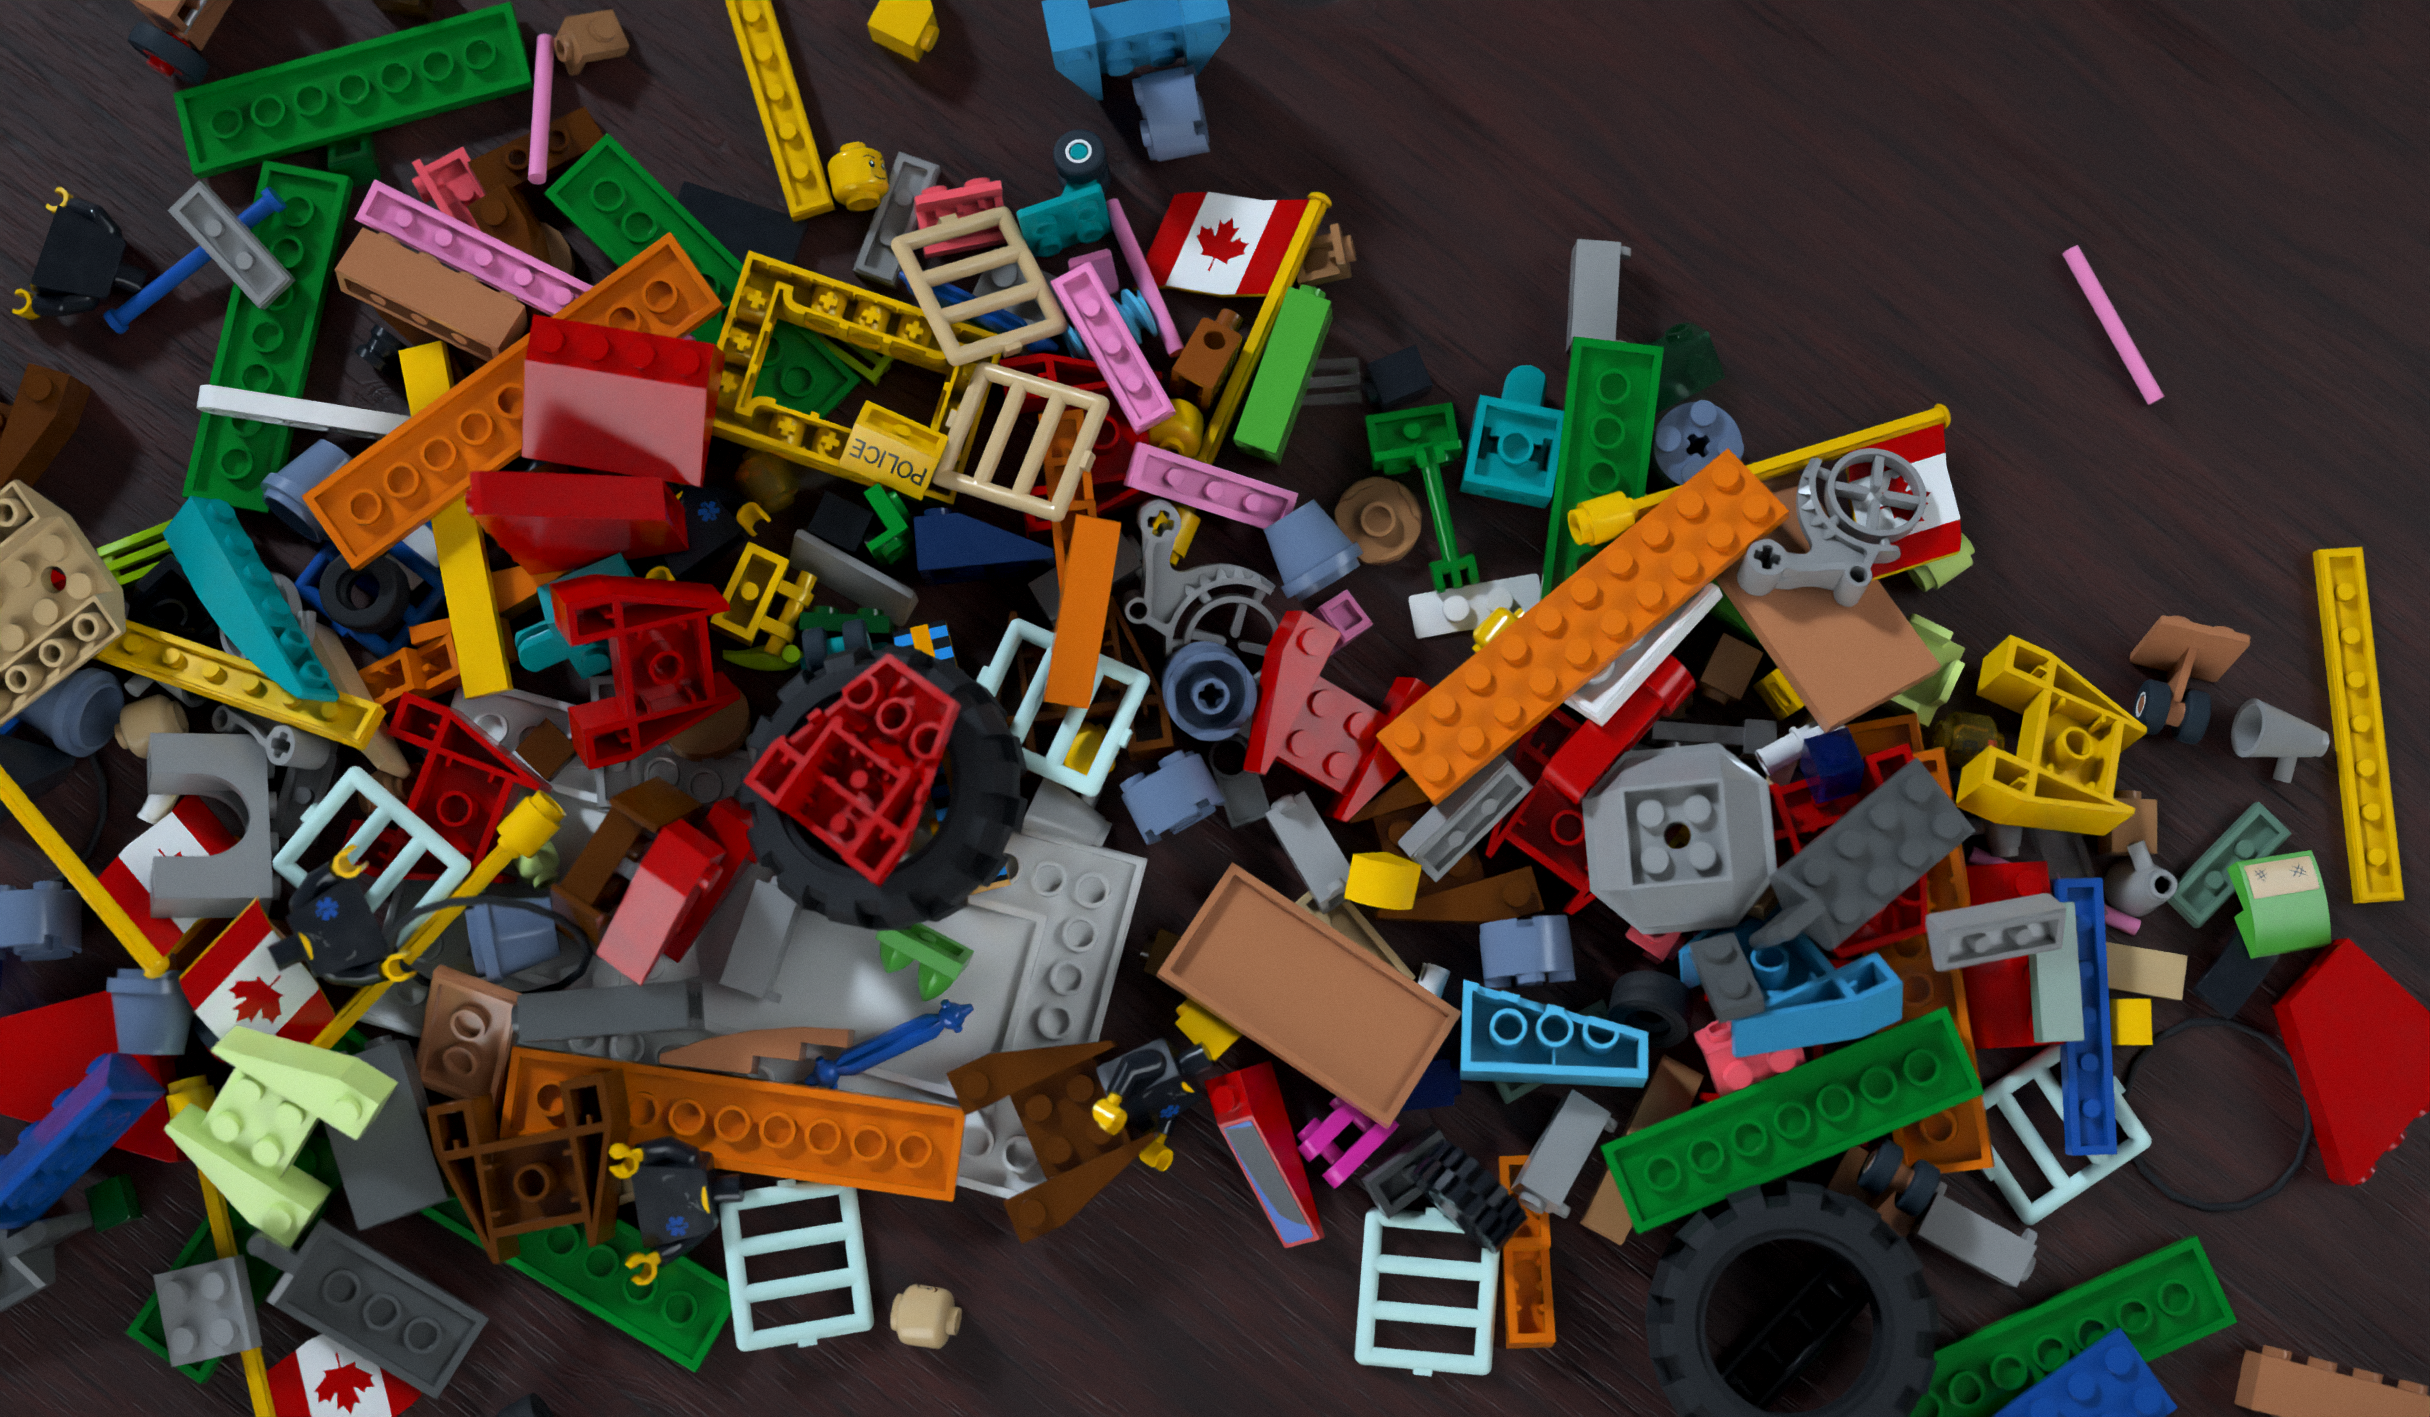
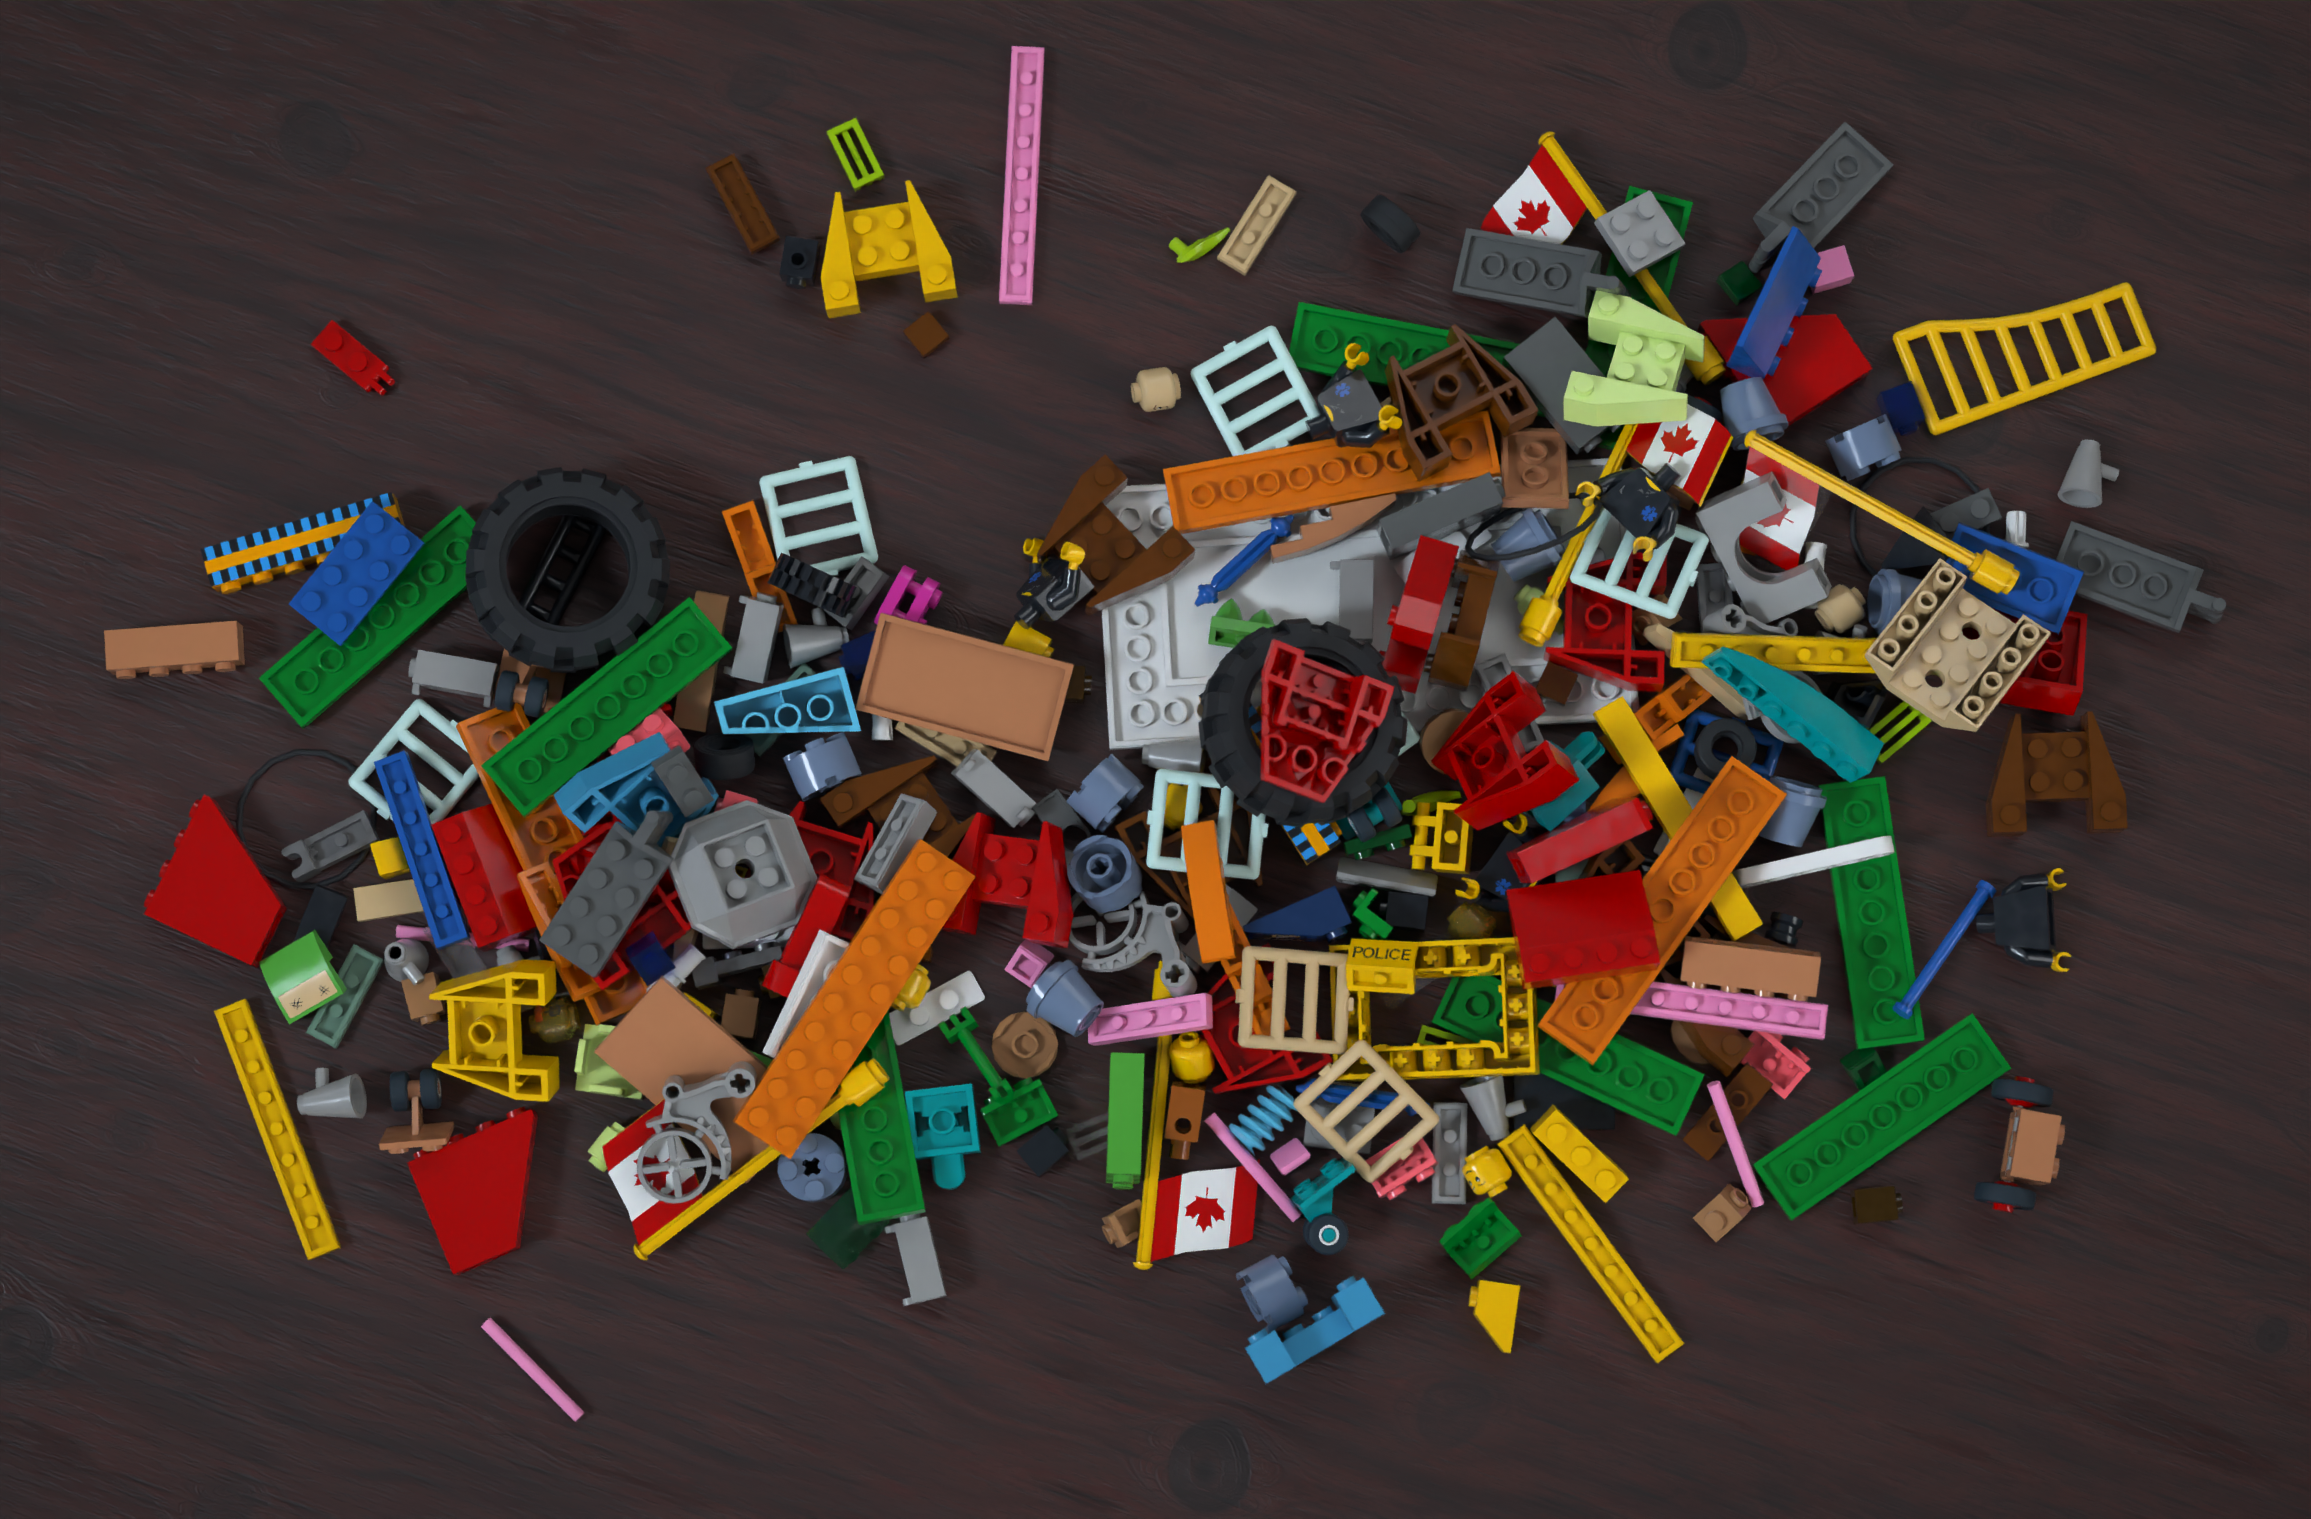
camera: 165 degrees right, 0 degrees up
(231, 245) = (1917, 965): light grey tile -> none
(743, 166) = (1579, 1153): none -> yellow arch
(823, 247) = (1489, 1104): none -> light grey piece
(896, 101) = (1479, 1238): none -> green bracket
(1113, 348) = (1254, 1096): bright pink tile -> none
(1262, 1140) = (965, 580): red slope -> none
(1382, 880) = (938, 778): yellow brick -> none
(1487, 1126) = (811, 642): none -> light grey piece
(1995, 931) = (505, 877): light grey slope -> none
(2057, 988) = (453, 868): sand green tile -> none
(2123, 559) = (479, 1189): none -> red slope
(2195, 1064) = (331, 845): none -> flat silver plate

